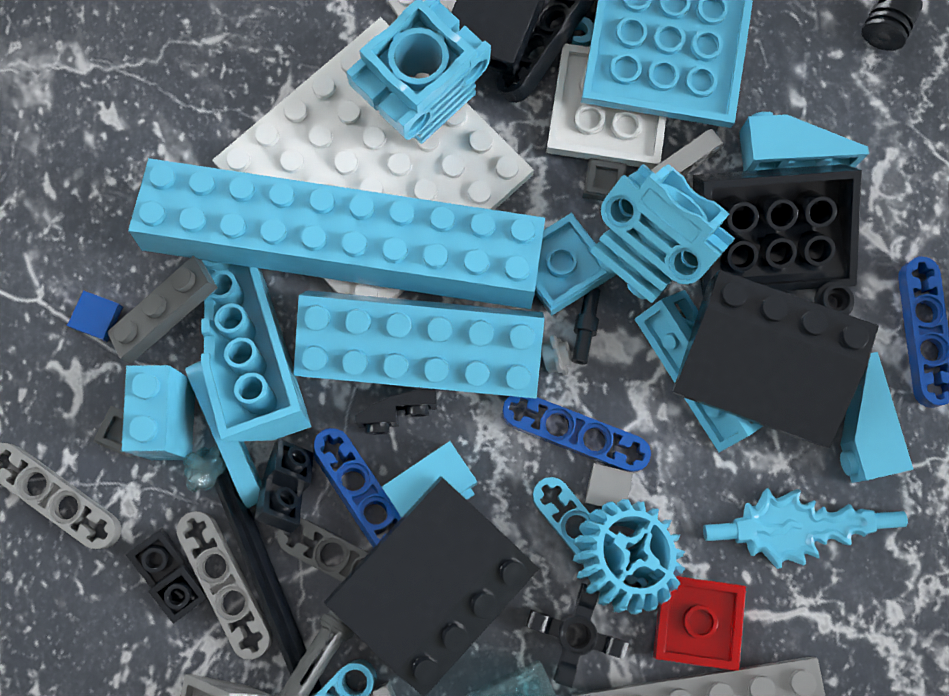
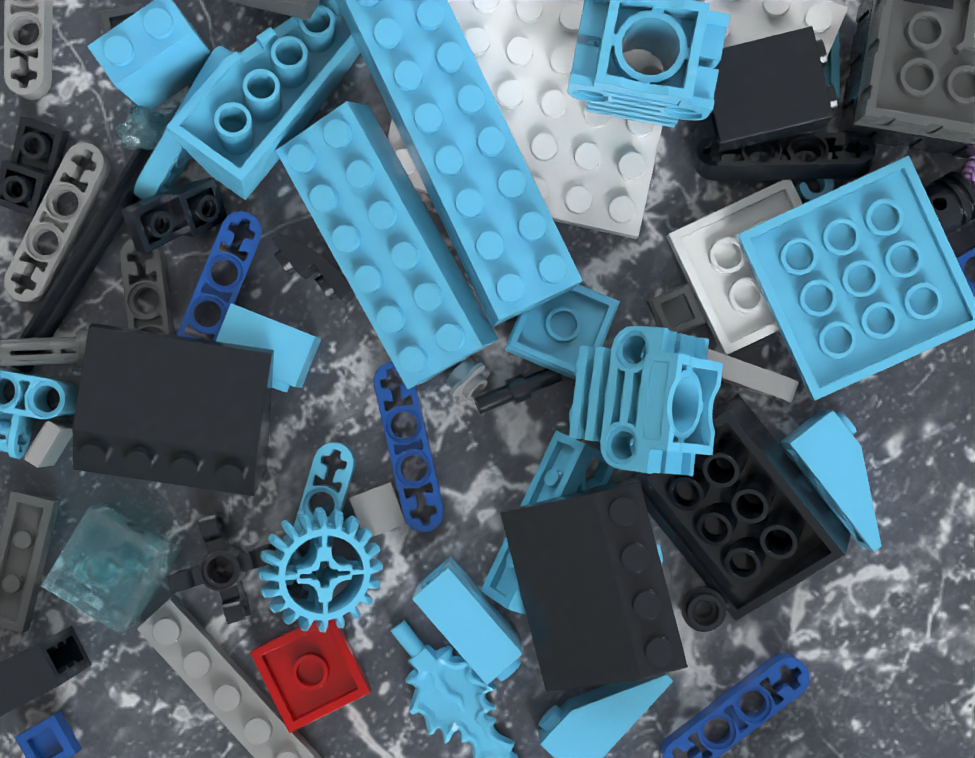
camera: 60 degrees right, 10 degrees up
(740, 468) = (469, 621): none -> medium azure brick

